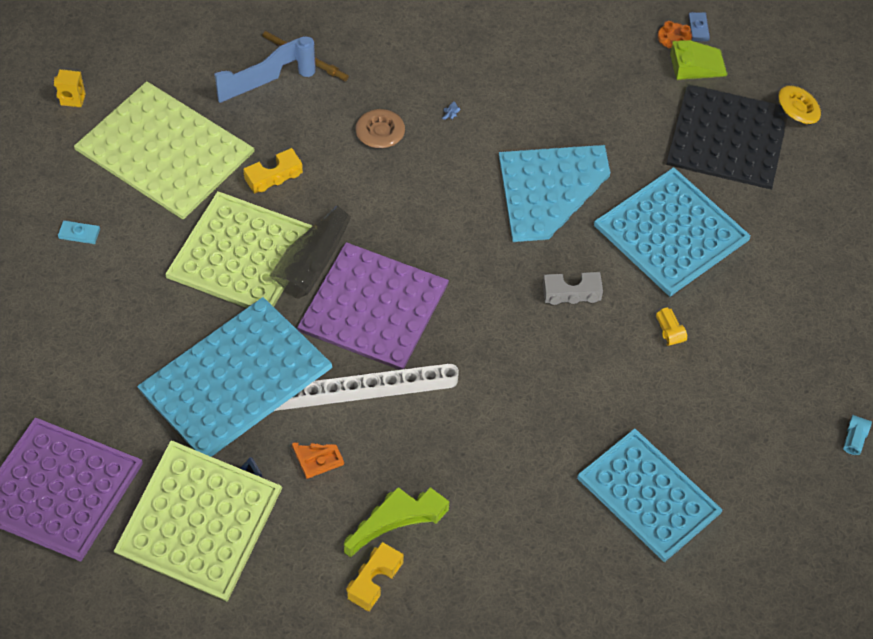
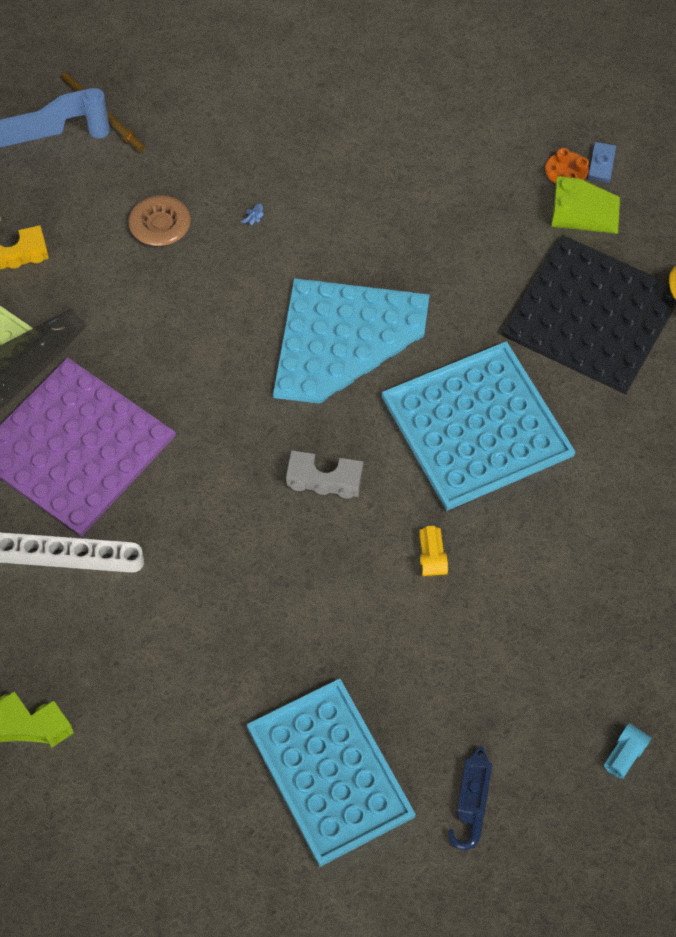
camera: 15 degrees right, 5 degrees up
(758, 490) = (473, 798): none -> dark blue plate

